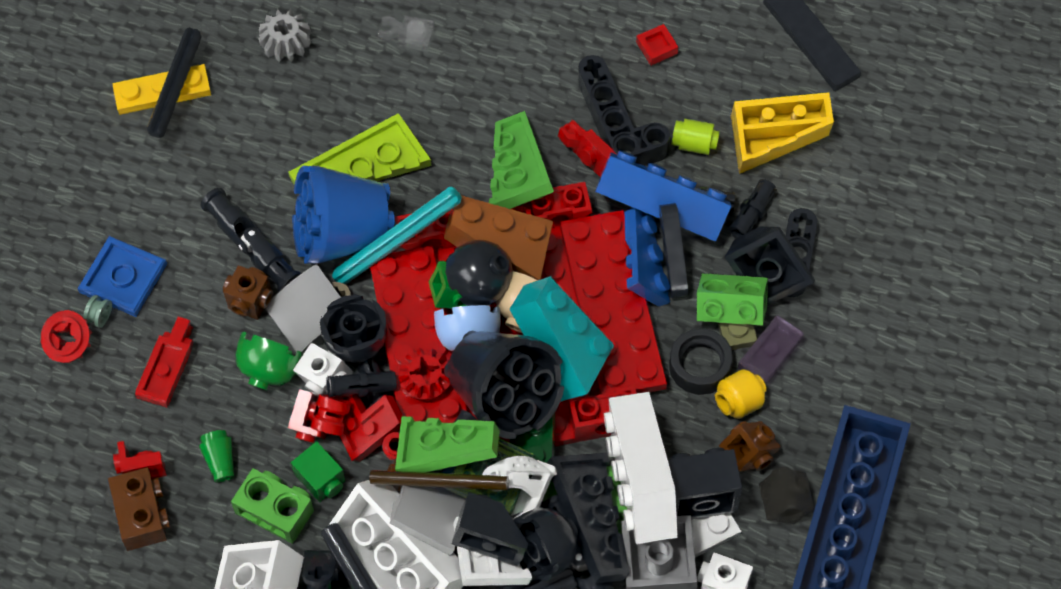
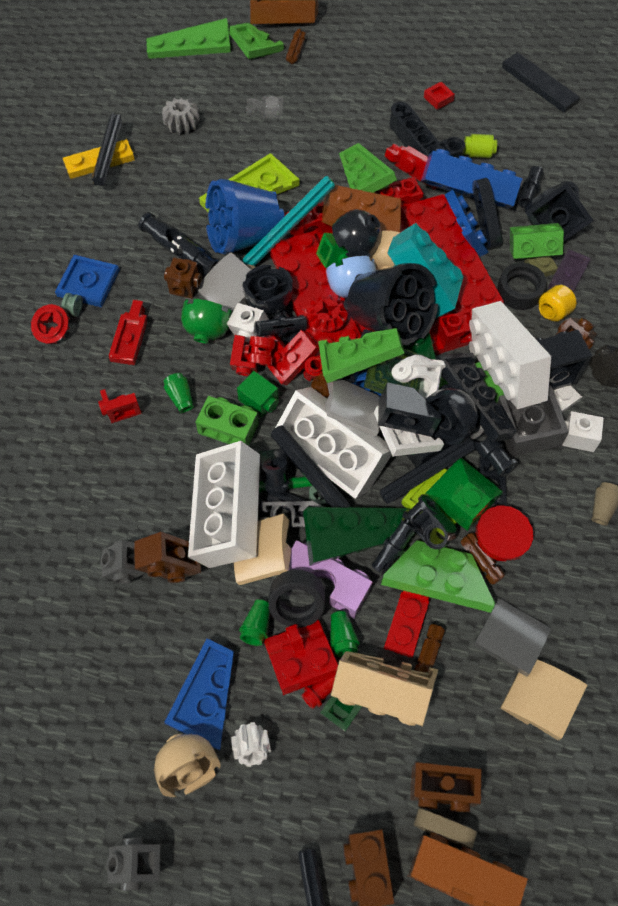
camera: 10 degrees left, 0 degrees up
(138, 509) = (123, 438): reddish brown brick -> none
(439, 480) = (360, 378): dark brown bar -> none
(778, 126) = (536, 131): yellow wedge -> none

